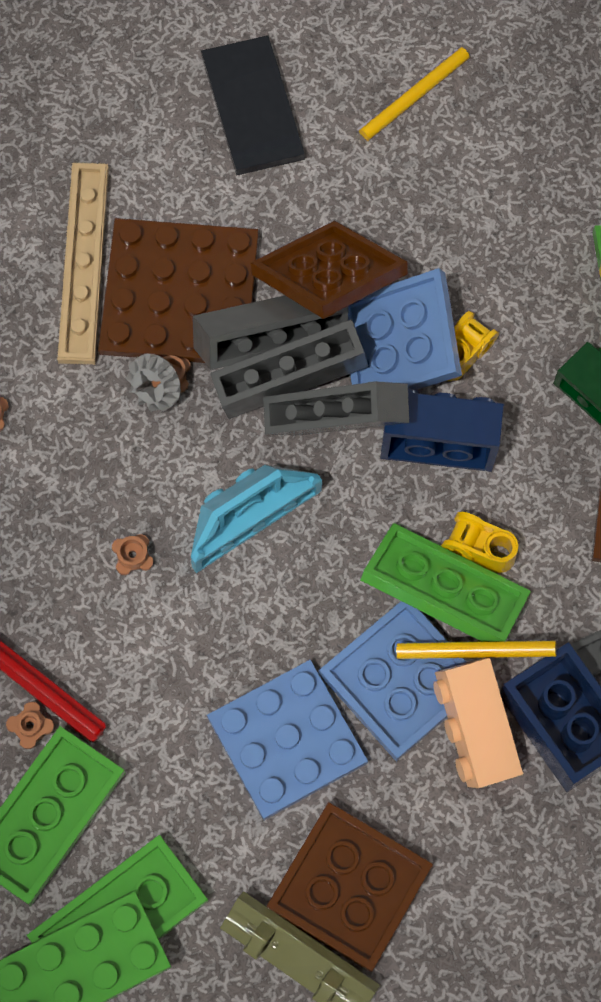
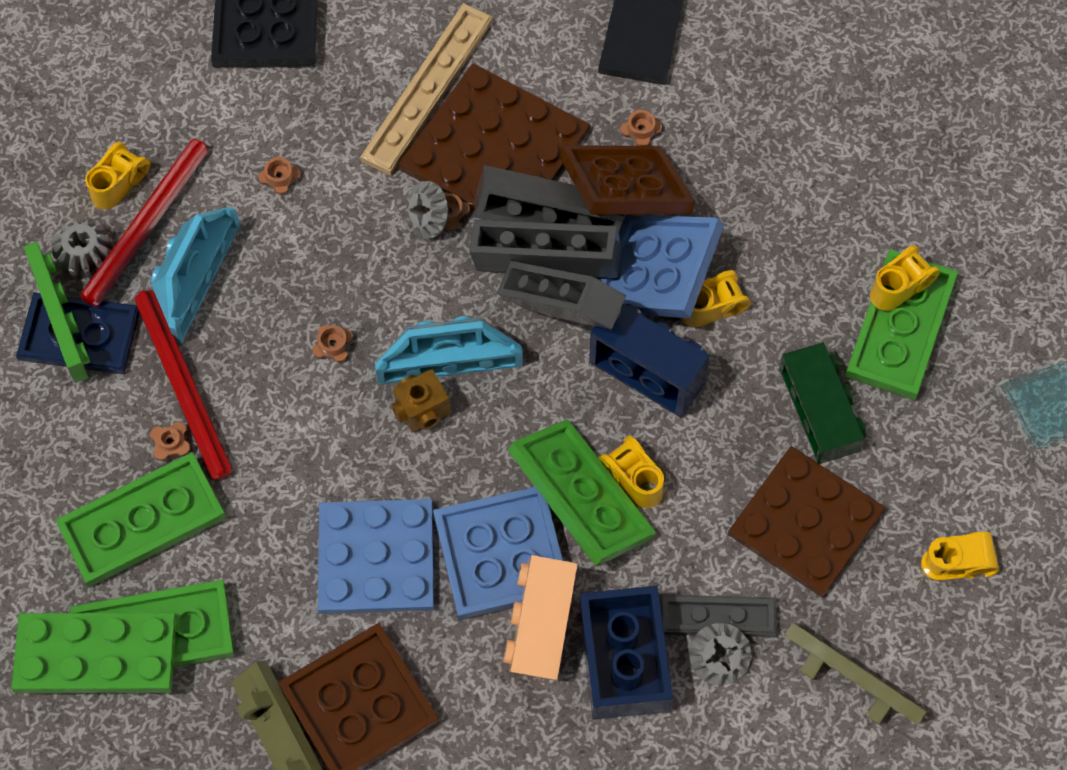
camera: 30 degrees right, 5 degrees down
(250, 571) = (420, 401): none -> pearl gold brick
(306, 201) = (644, 119): none -> nougat plate
(414, 94) = (792, 70): yellow bar -> none
(476, 649) = (574, 554): yellow bar -> none

